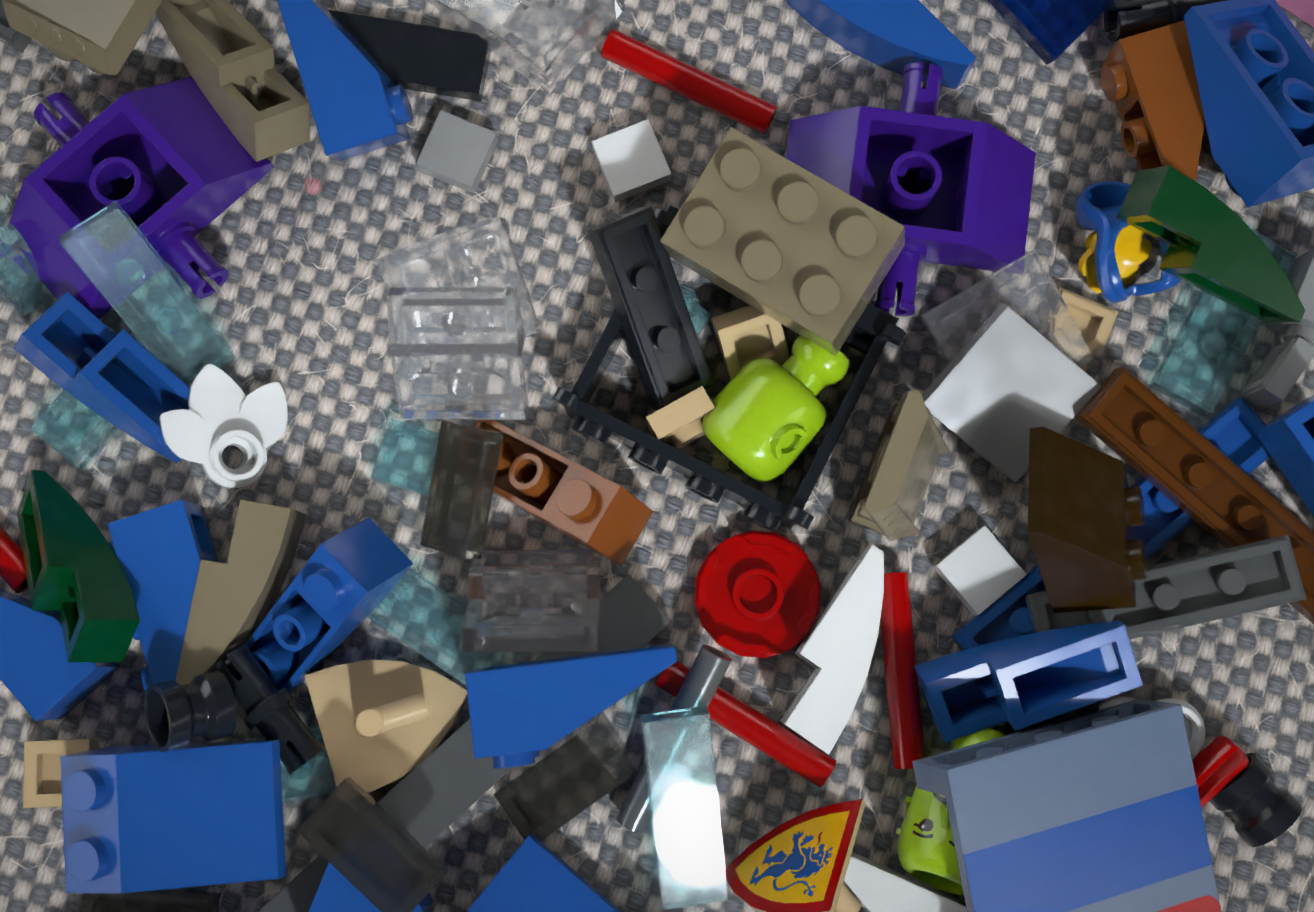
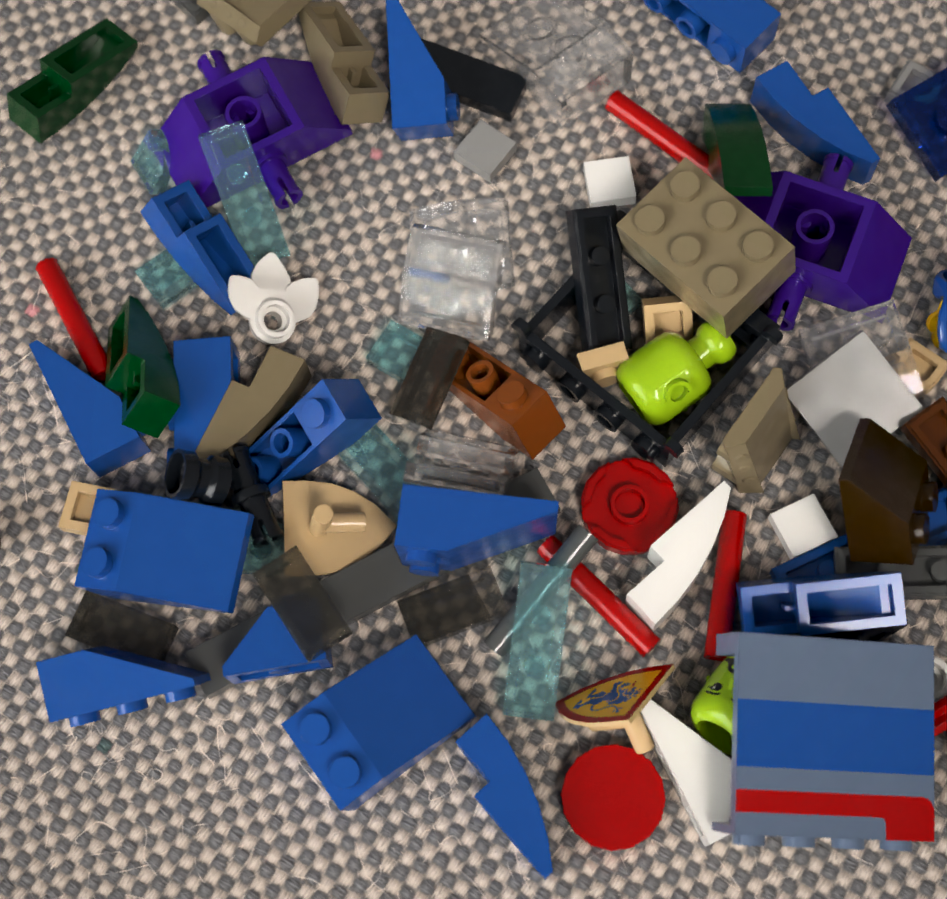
camera: 20 degrees right, 10 degrees down
(791, 89) = (737, 149): none -> dark green slope

